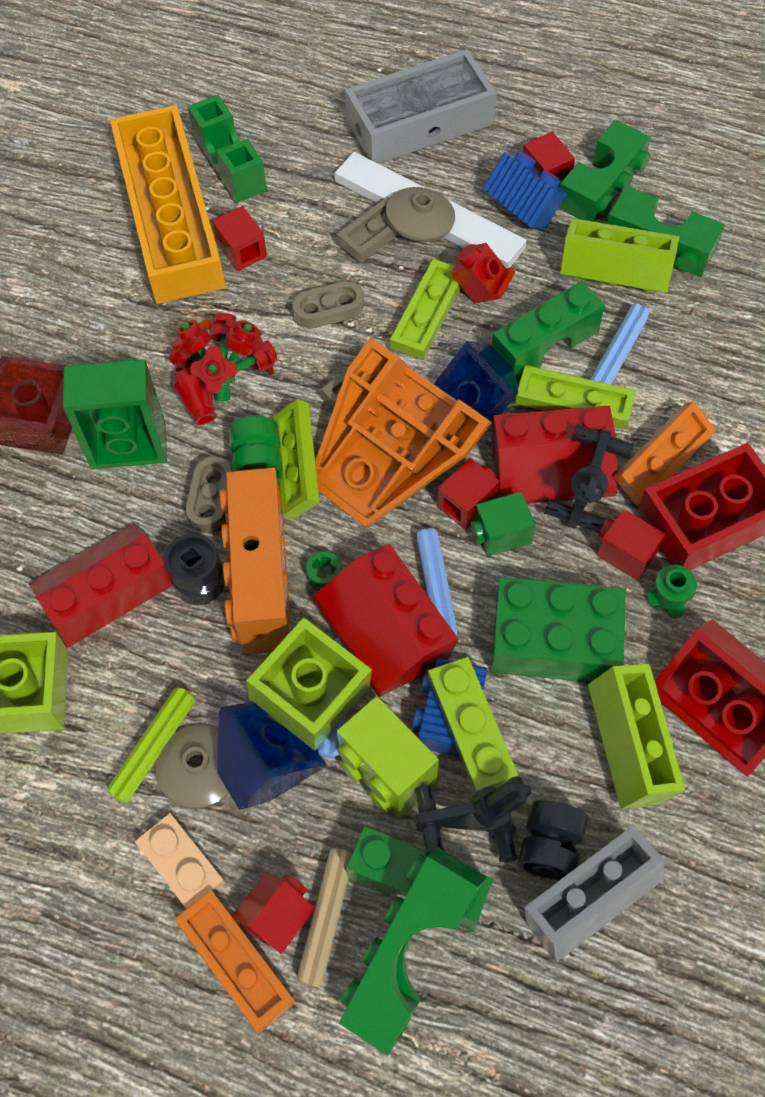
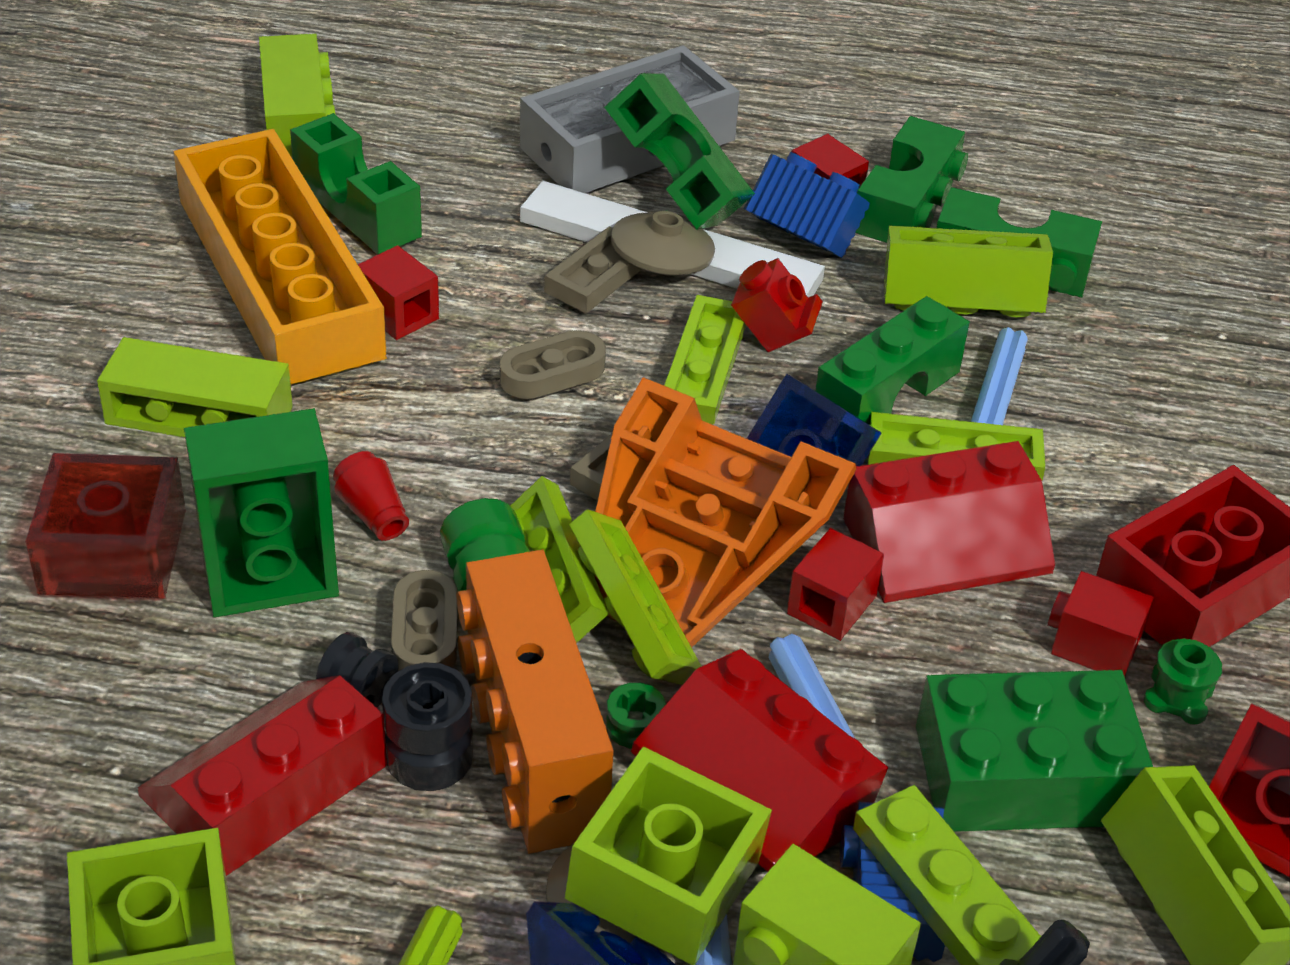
camera: 15 degrees left, 20 degrees down
(102, 307) = (181, 387): none -> lime brick
(162, 523) = (358, 665): none -> black wheel
(203, 61) = (294, 83): none -> lime brick
(212, 364) = (410, 436): red plant -> none
(337, 494) = (634, 598): none -> lime plate
(431, 121) = (661, 121): none -> green arch
(503, 524) = (902, 617): green brick -> none
(589, 481) = (1024, 536): black axle -> none
(665, 451) = (1110, 500): orange plate -> none

